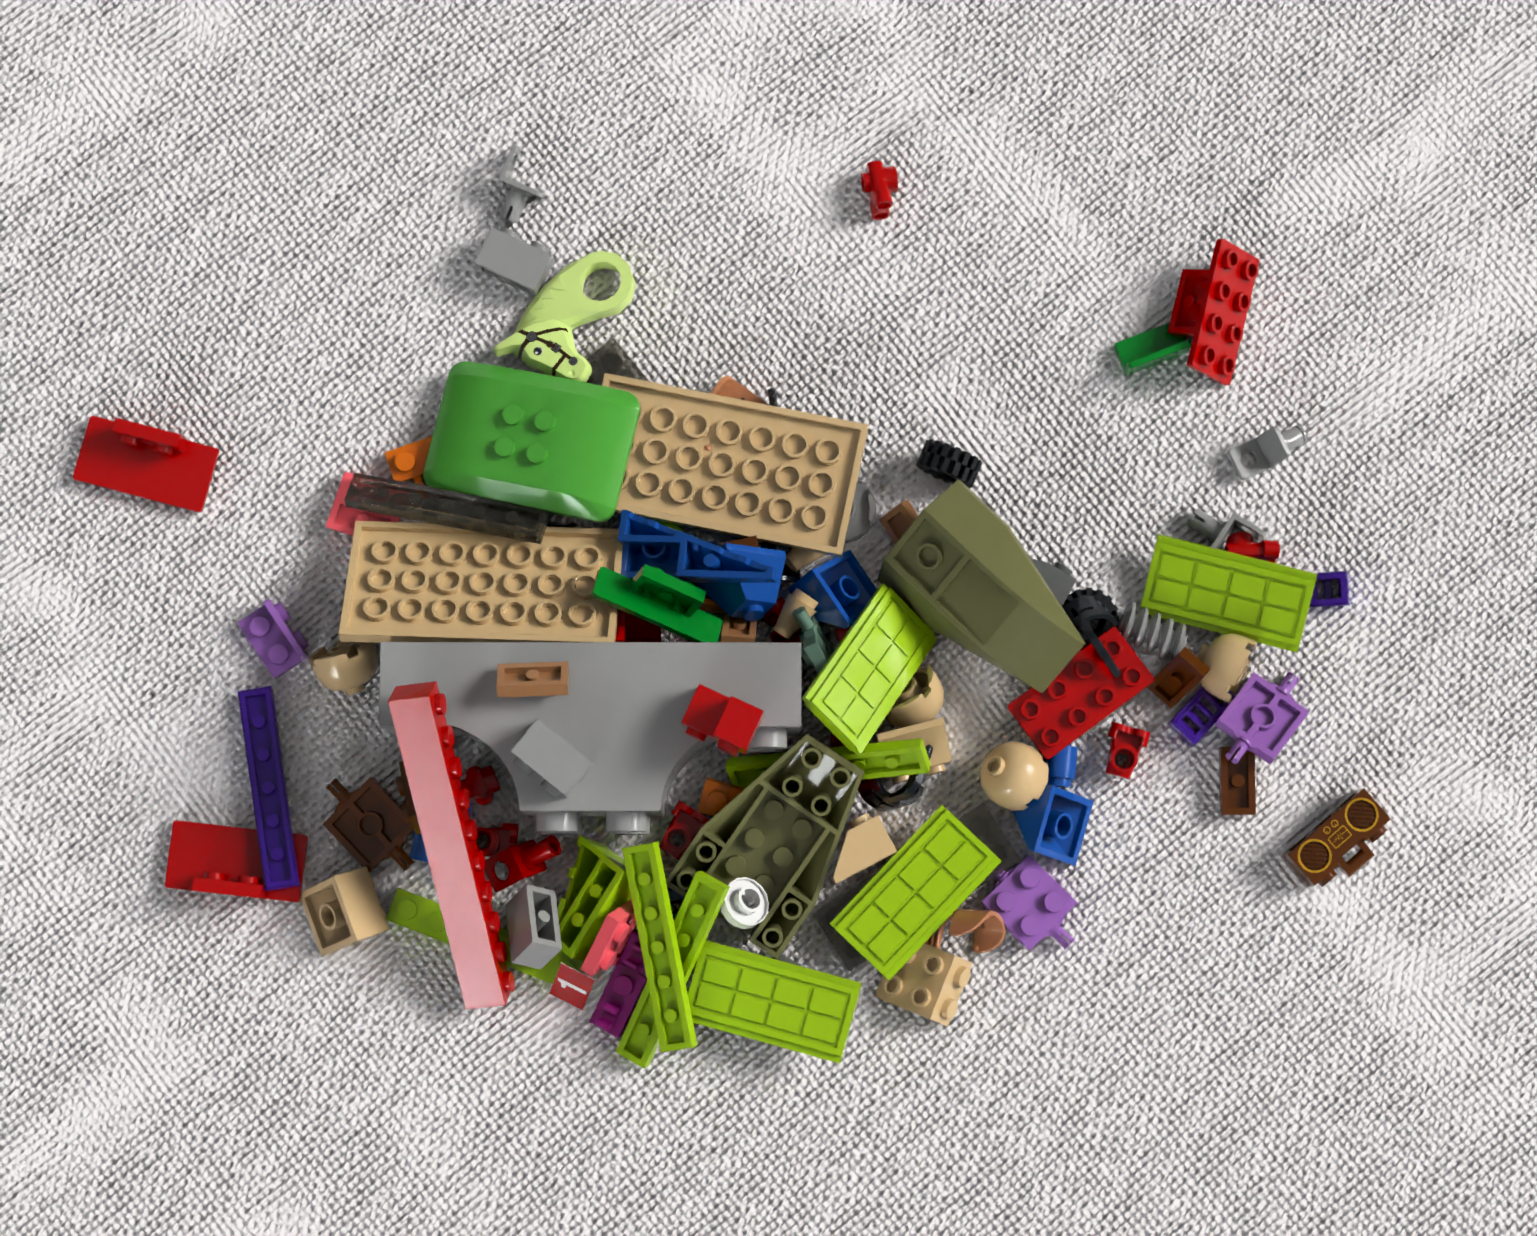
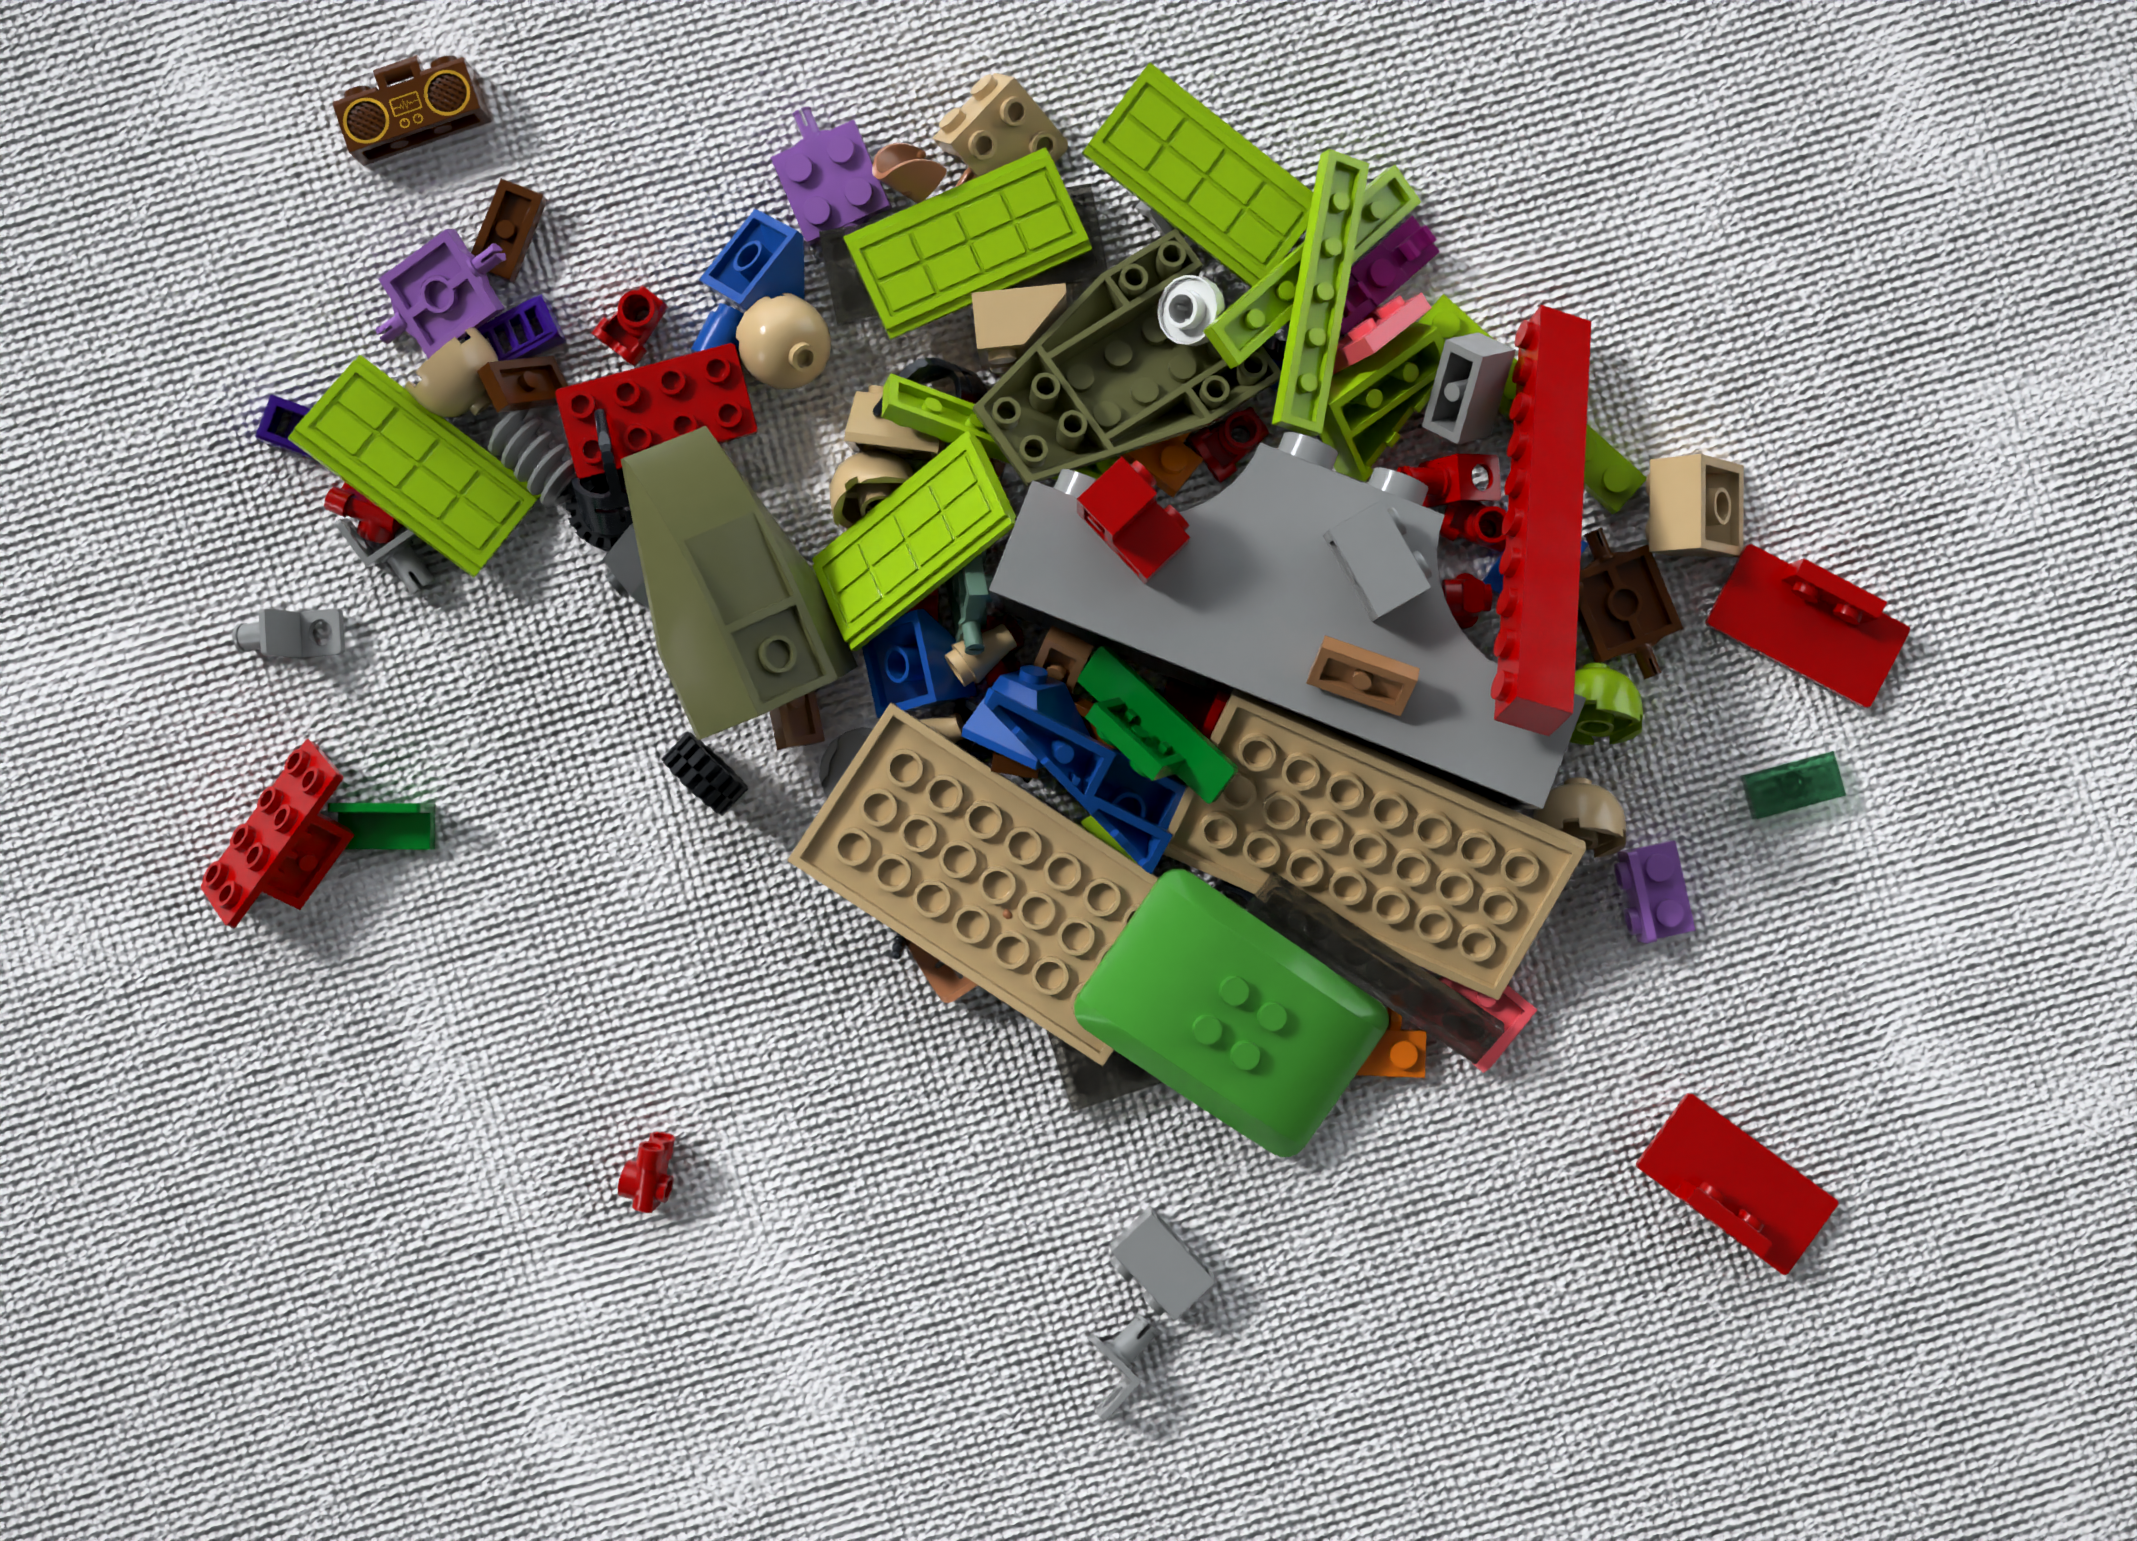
camera: 150 degrees left, 5 degrees up
(206, 747) = (1793, 785): none -> clear green plate
(268, 788) = (1734, 700): dark purple tile -> none
(362, 748) = (1610, 707): none -> lime cylinder
(546, 327) = (1156, 1157): yellowish green animal -> none
(572, 986) = (1446, 298): red sticker -> none

